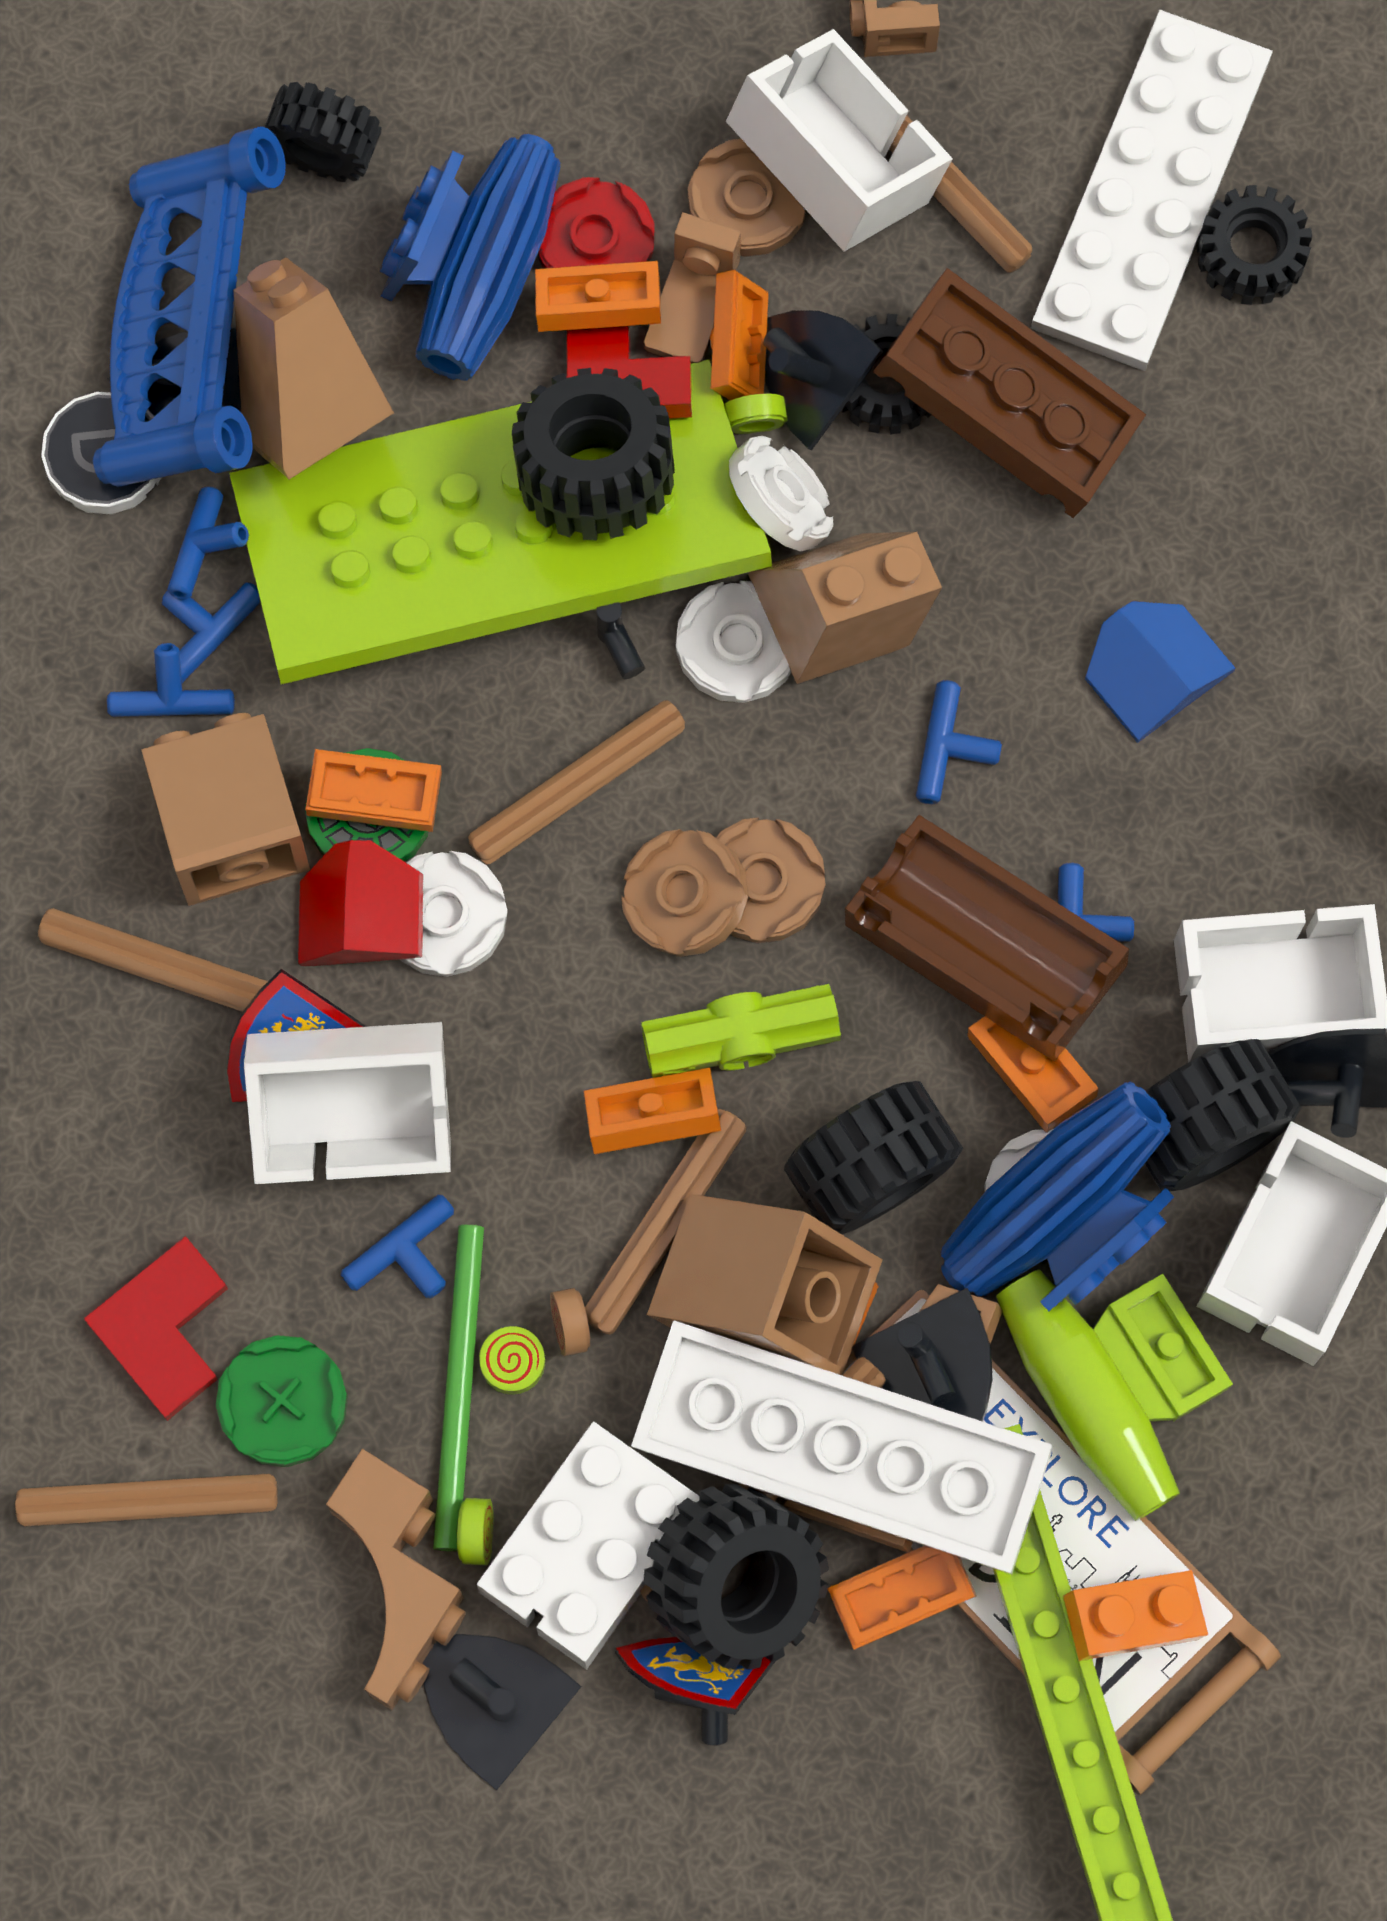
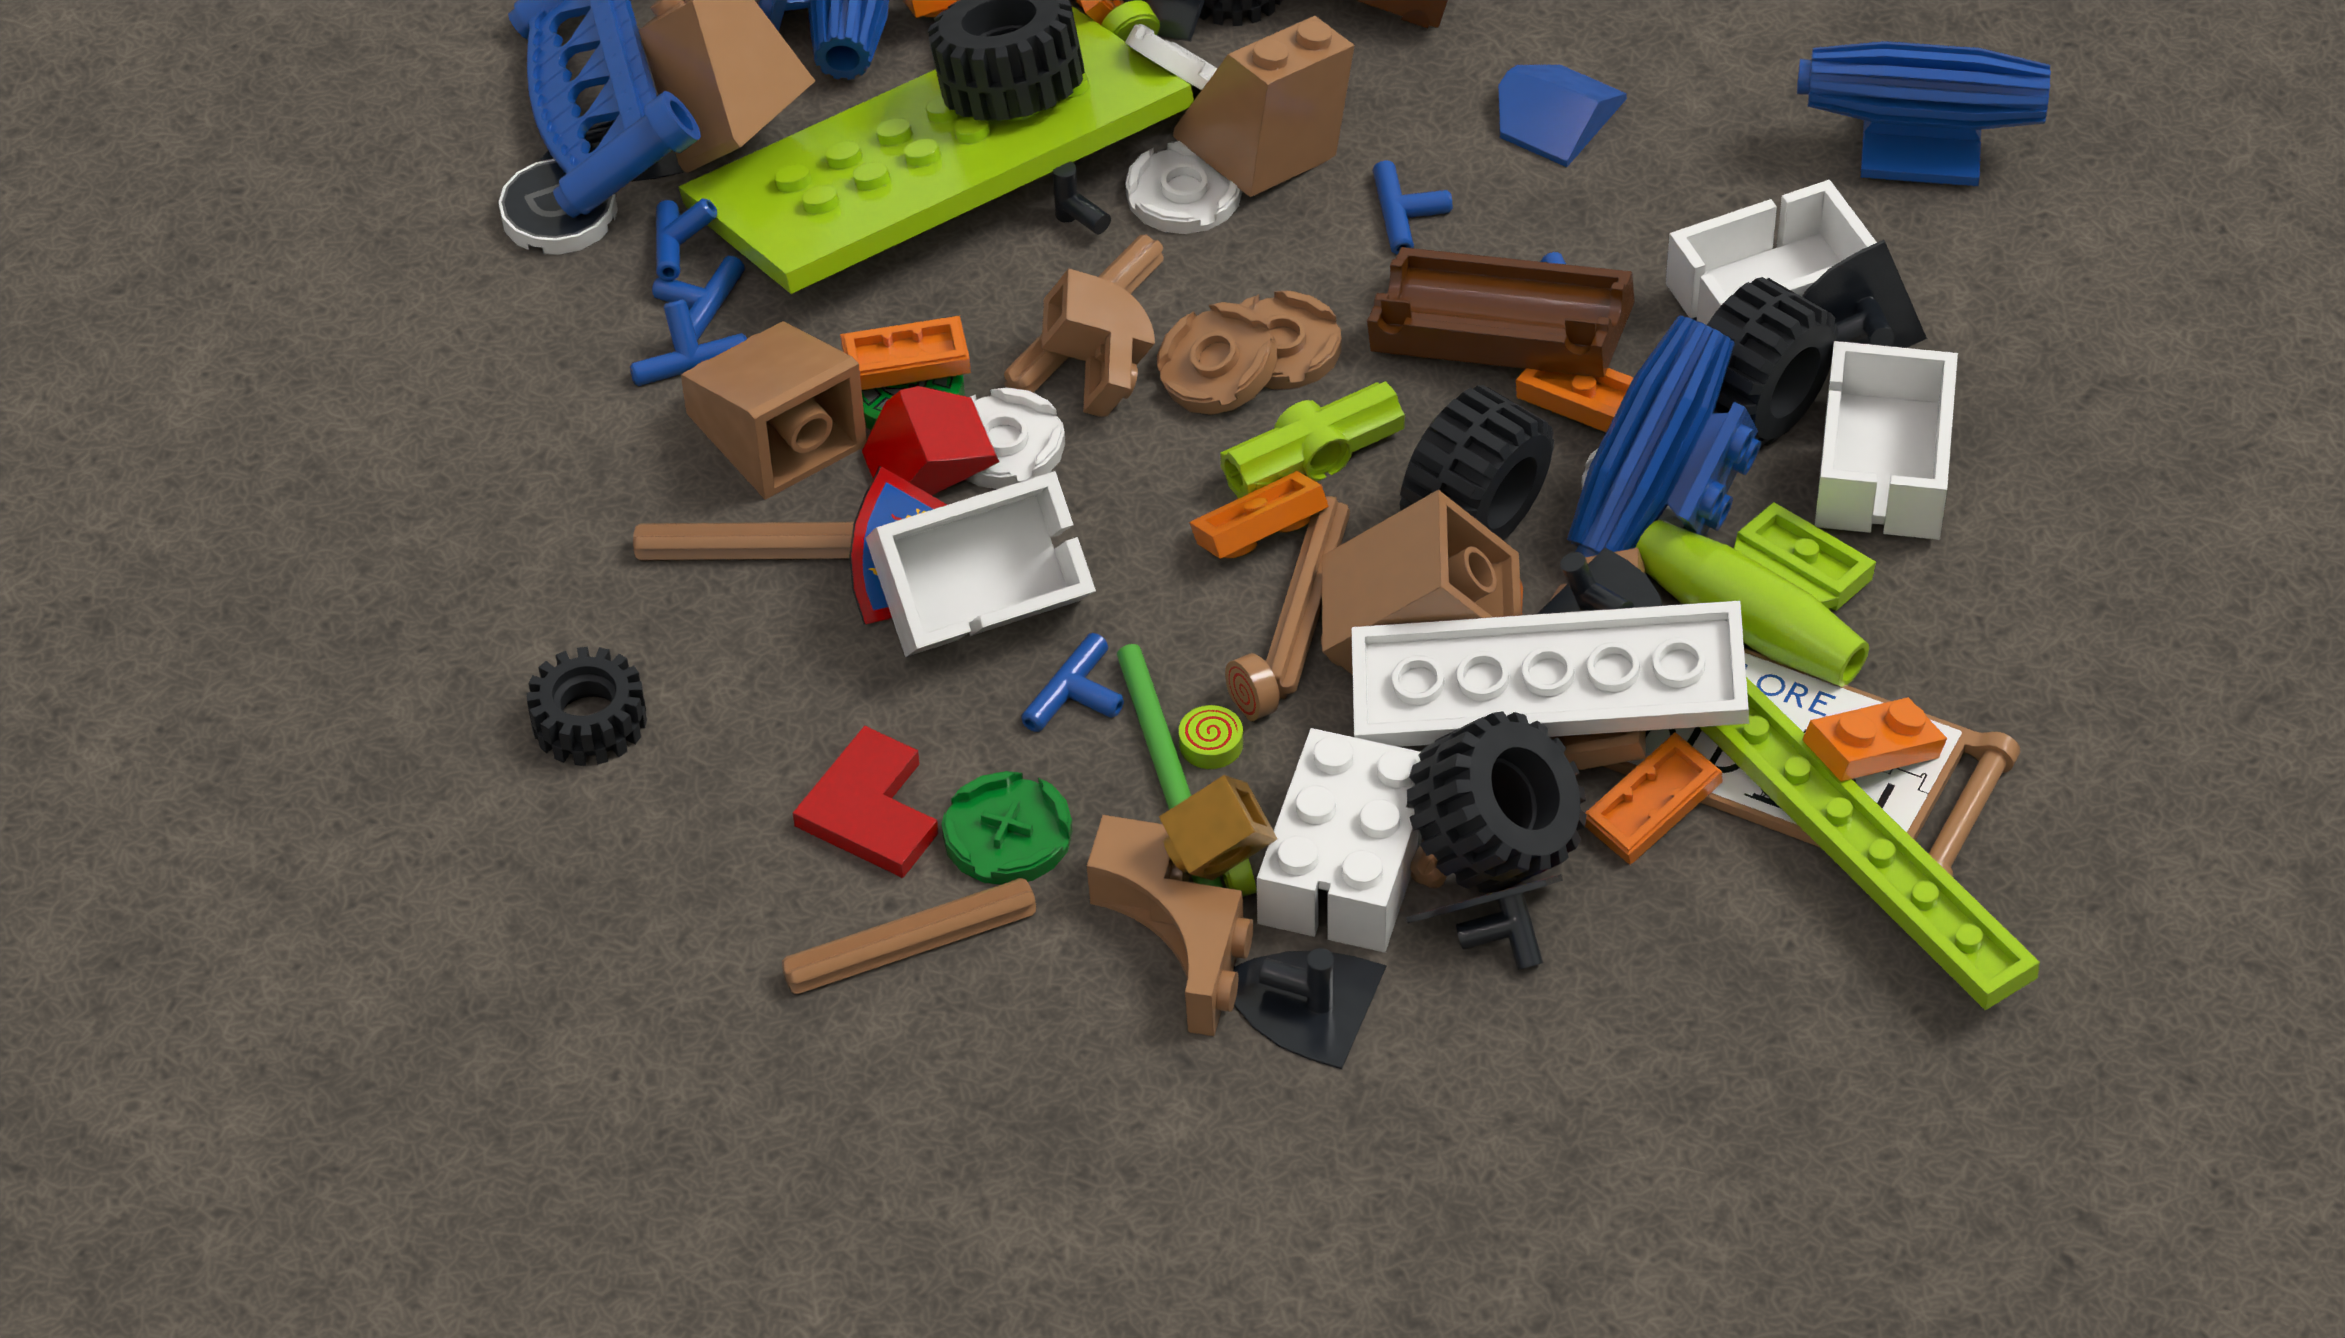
camera: 15 degrees left, 25 degrees down
(454, 1526) = (1216, 829): none -> pearl gold brick
(583, 830) = (1101, 326): none -> medium nougat brick

